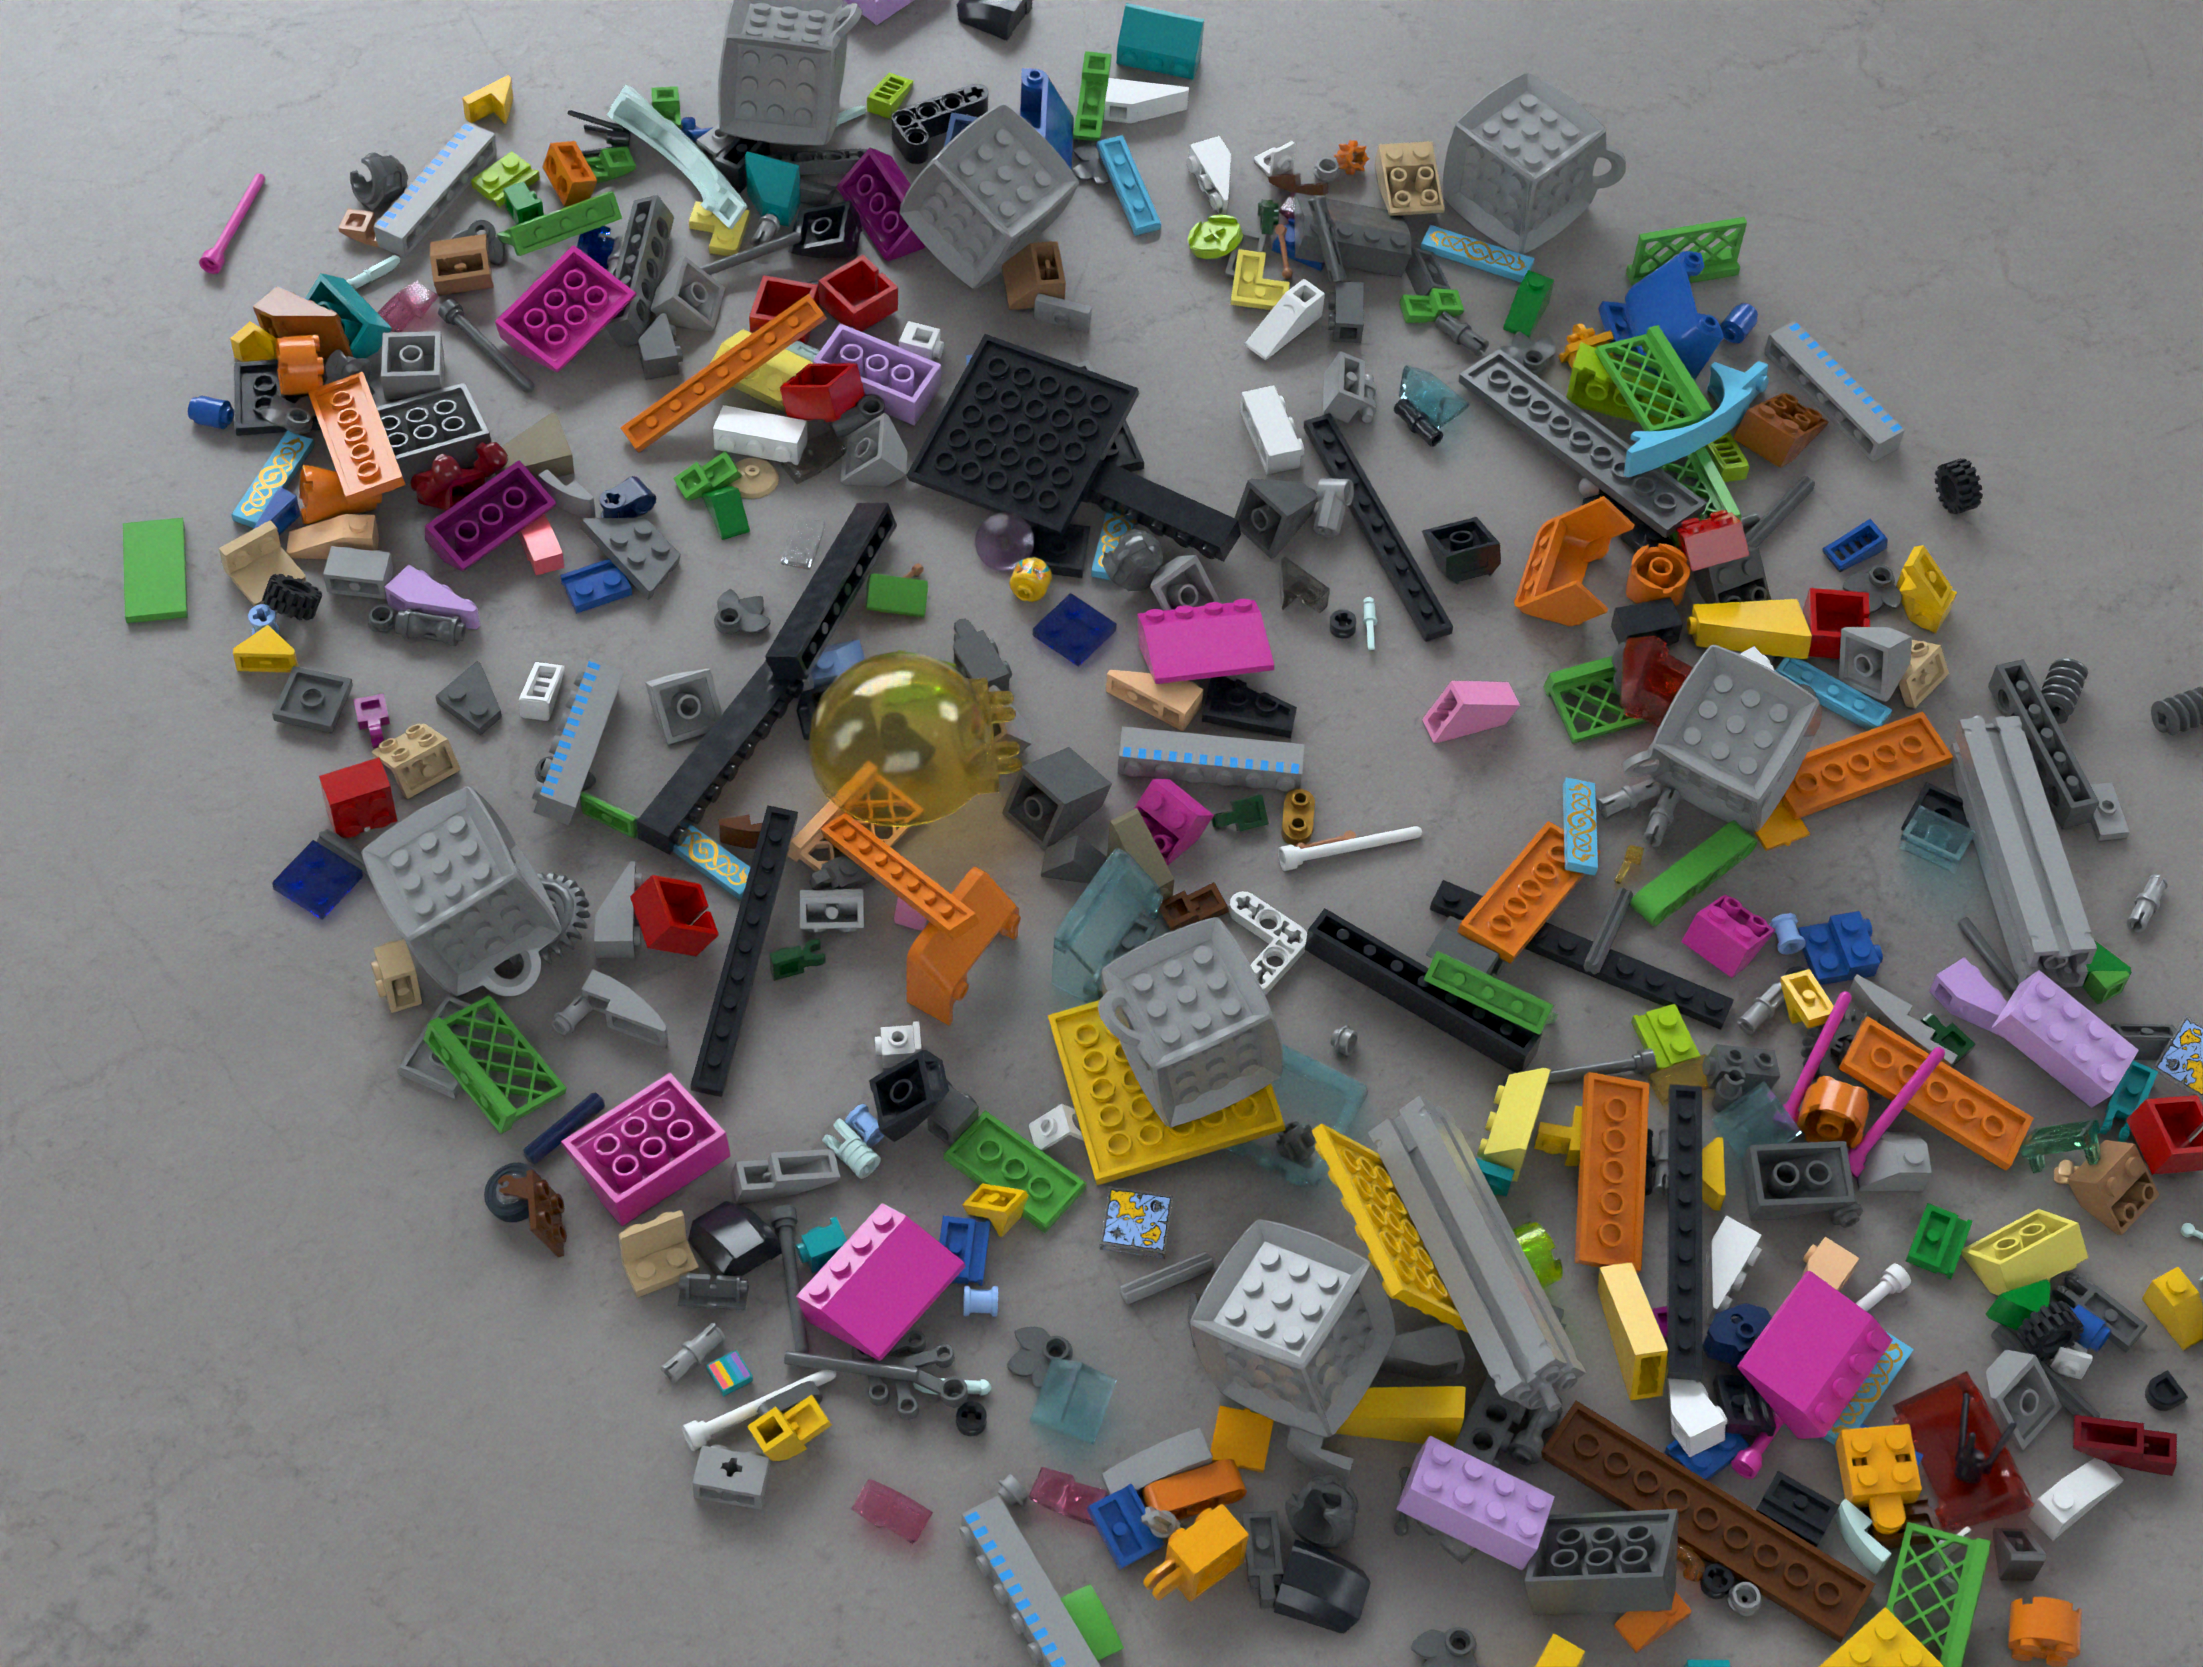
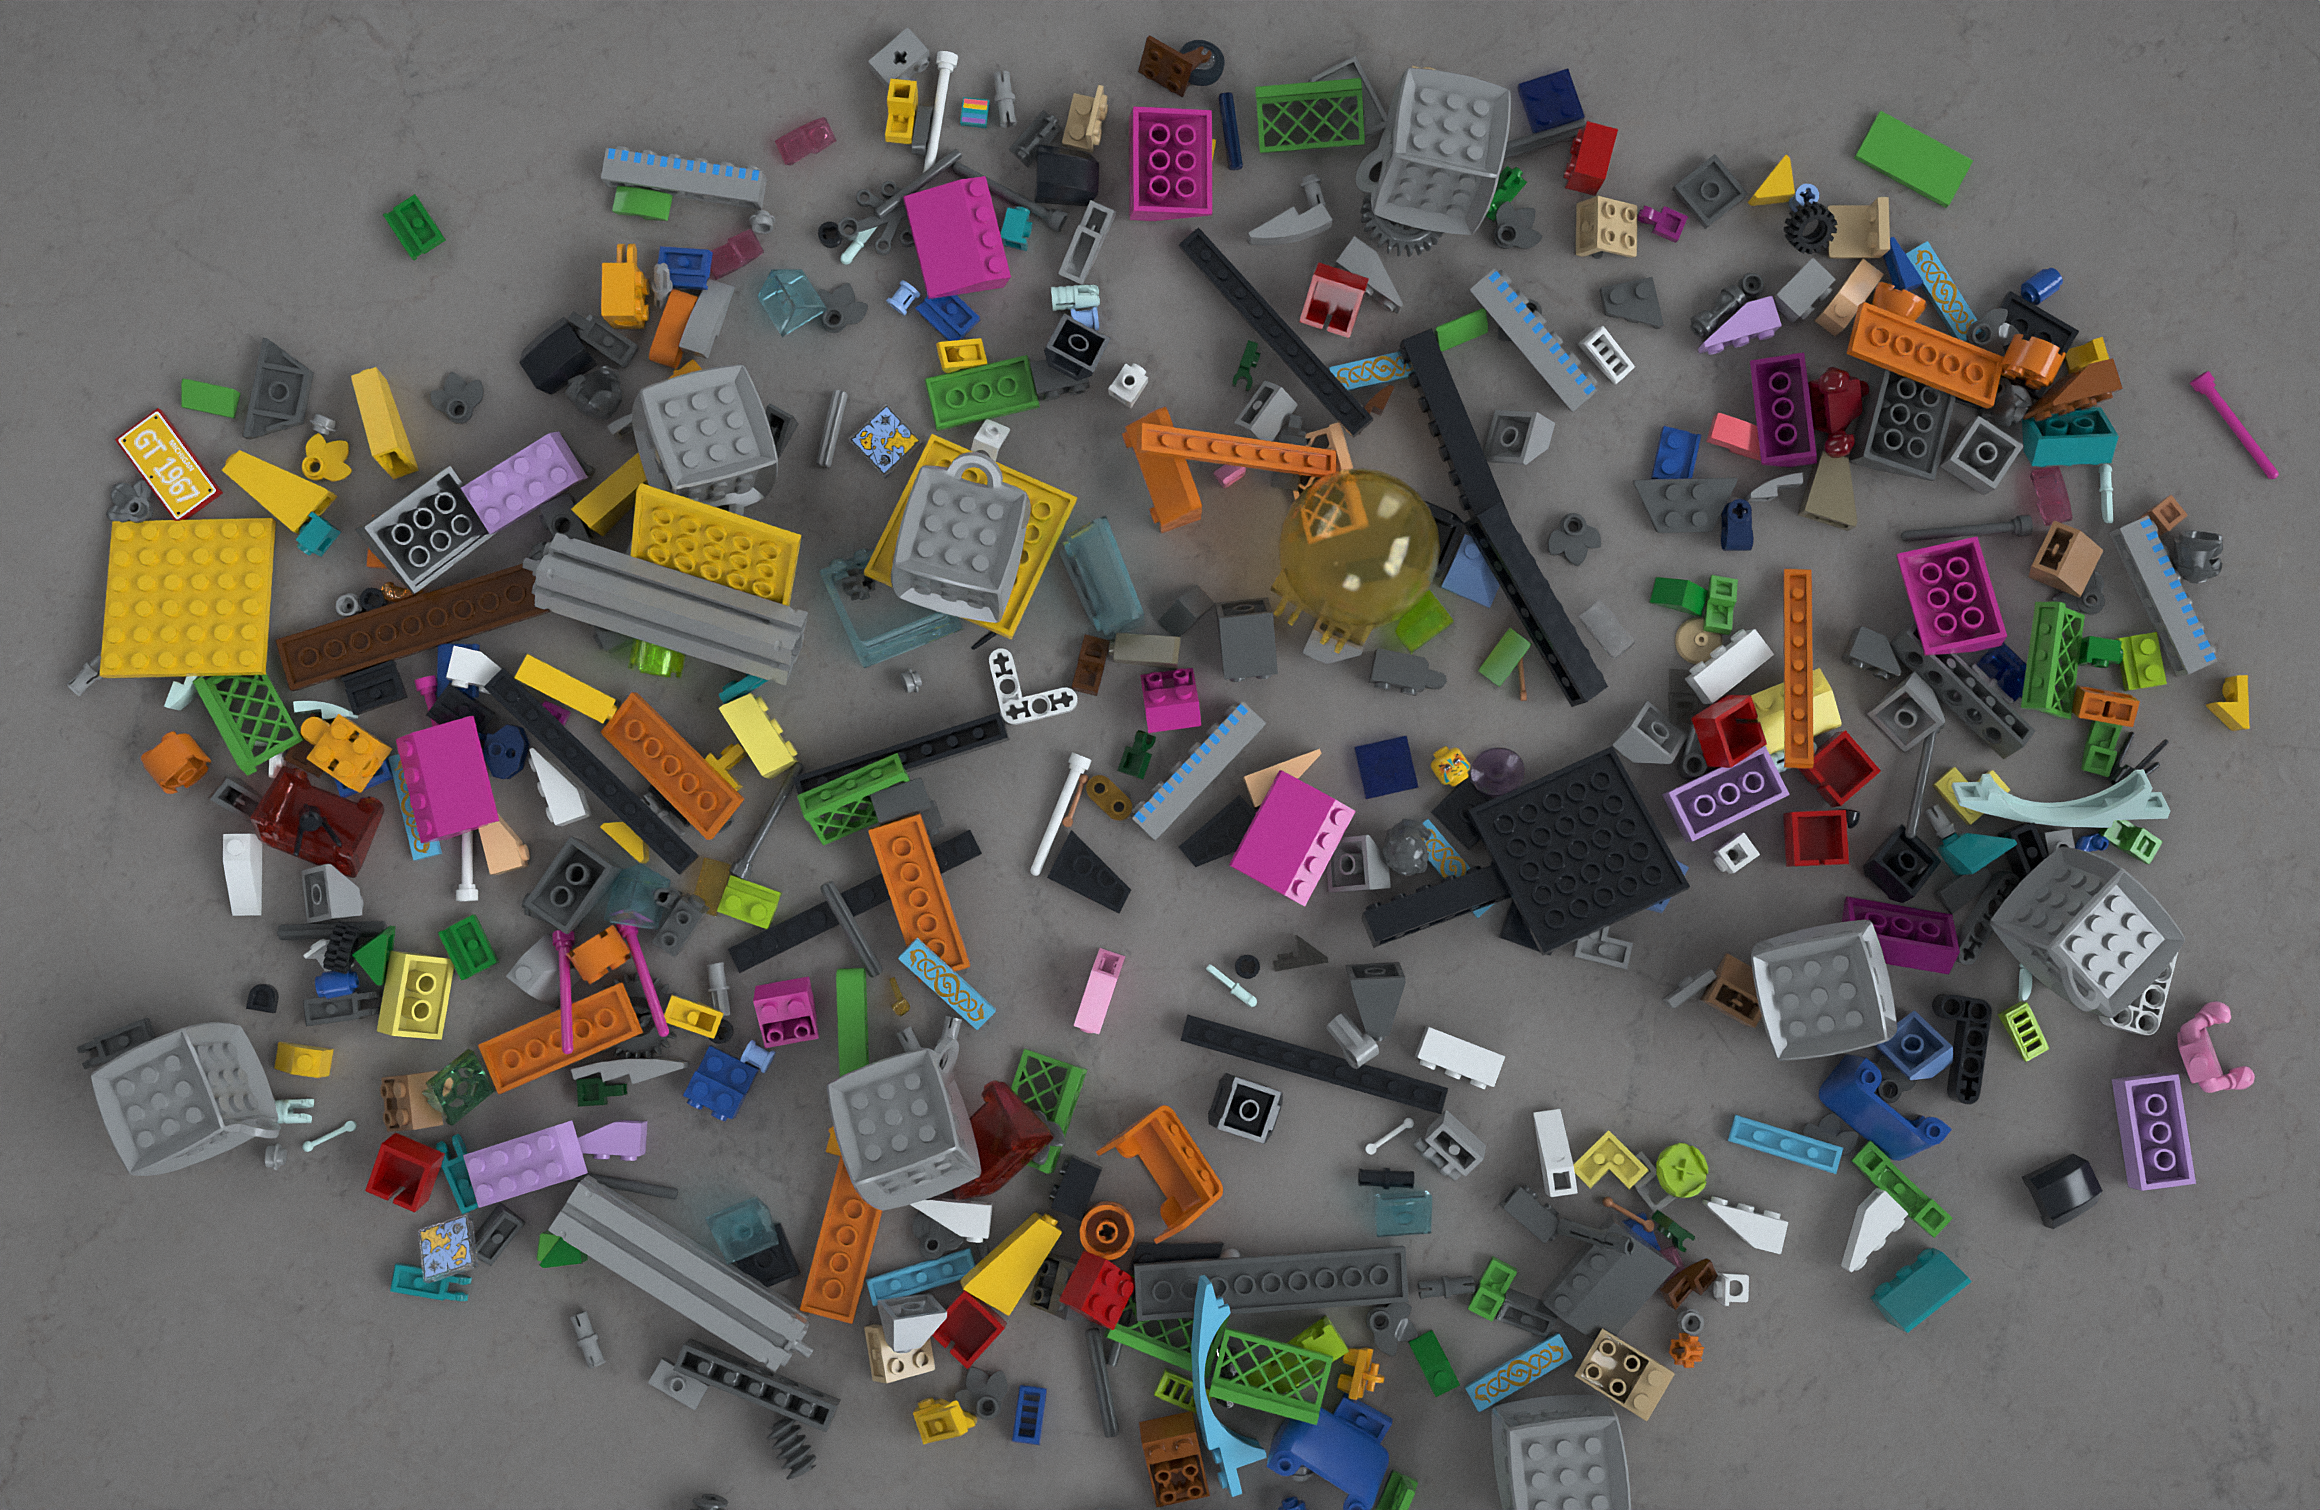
camera: 130 degrees right, 30 degrees up
(1381, 786) = (1088, 875): none -> black wing
(1404, 450) = (1371, 1148): none -> white hinge
(2126, 1444) = (247, 934): dark red slope -> none

